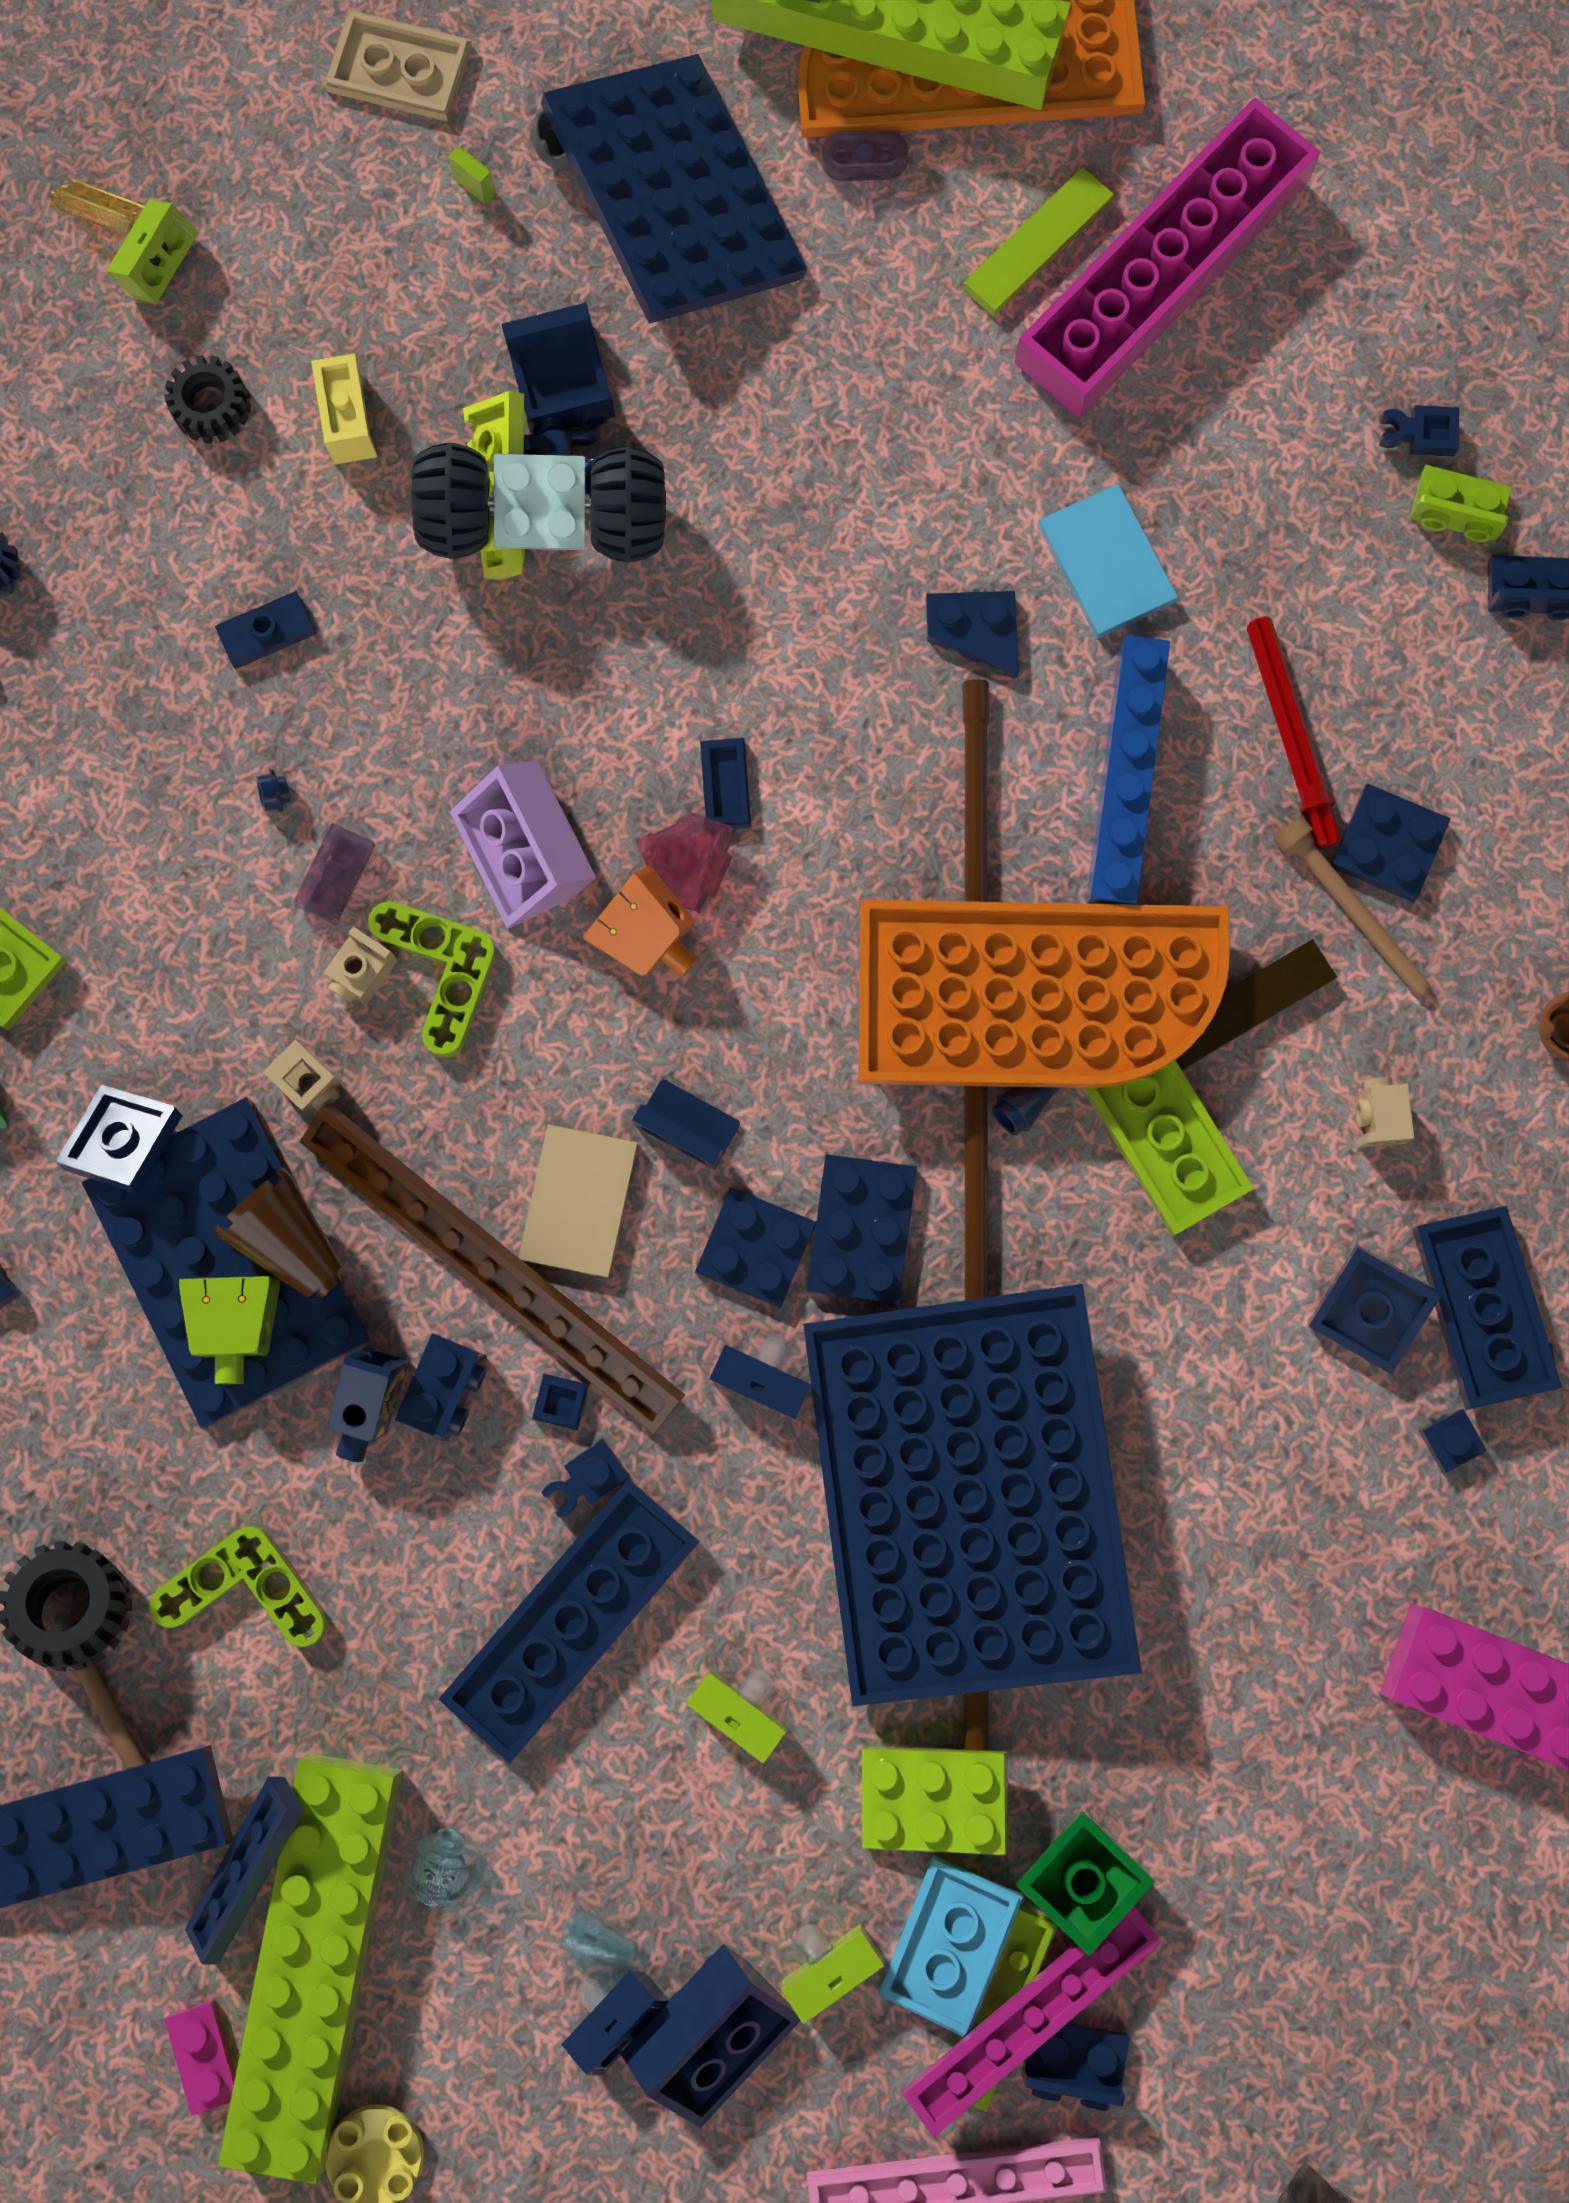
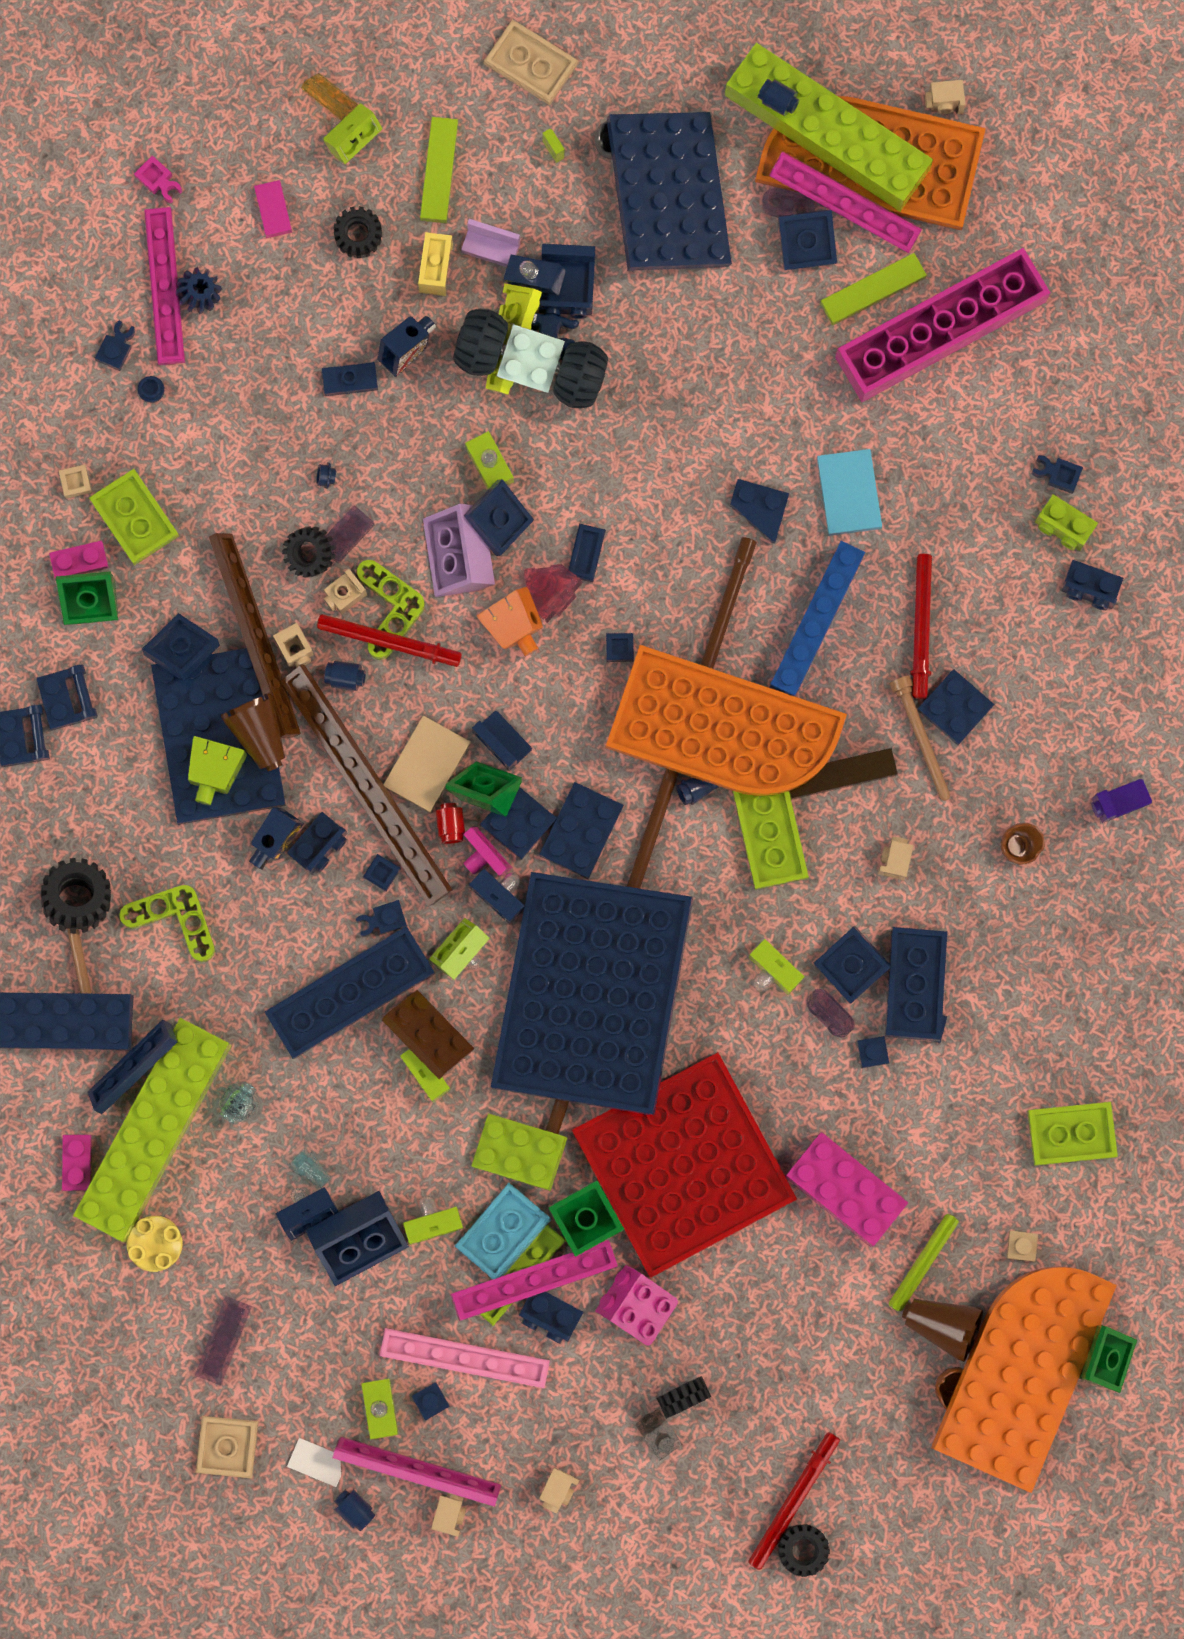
camera: 10 degrees right, 0 degrees up
(64, 406) = (273, 209): none -> dark pink tile
(232, 1077) = (253, 630): none -> reddish brown tile
(260, 931) = (321, 544): none -> black tyre
(306, 268) = (439, 170): none -> lime tile
(332, 546) = (404, 344): none -> dark blue torso
(400, 1100) = (344, 675): none -> dark blue brick
(422, 351) = (490, 243): none -> lavender panel
(455, 1021) = (389, 640): none -> red axle
(515, 369) = (534, 274): none -> dark blue piece
(526, 689) = (488, 460): none -> lime piece
(569, 770) = (499, 517): none -> dark blue plate
(647, 1286) = (450, 823): none -> red brick
(686, 1209) = (485, 787): none -> green slope
(719, 1317) = (485, 854): none -> dark pink tile
(721, 1651) = (428, 1034): none -> reddish brown plate
(728, 1490) = (460, 949): none -> lime piece
(828, 916) = (619, 647): none -> dark blue plate
(913, 194) = (807, 239): none -> dark blue plate
(952, 120) = (845, 202): none -> dark pink tile
(1212, 1998) = (637, 1305): none -> dark pink bracket
(1225, 1743) = (688, 1169): none -> red plate
(1249, 1357) = (774, 969): none -> lime piece
(1349, 2138) = (683, 1397): none -> black tyre
(1364, 1400) = (830, 1013): none -> clear purple plate

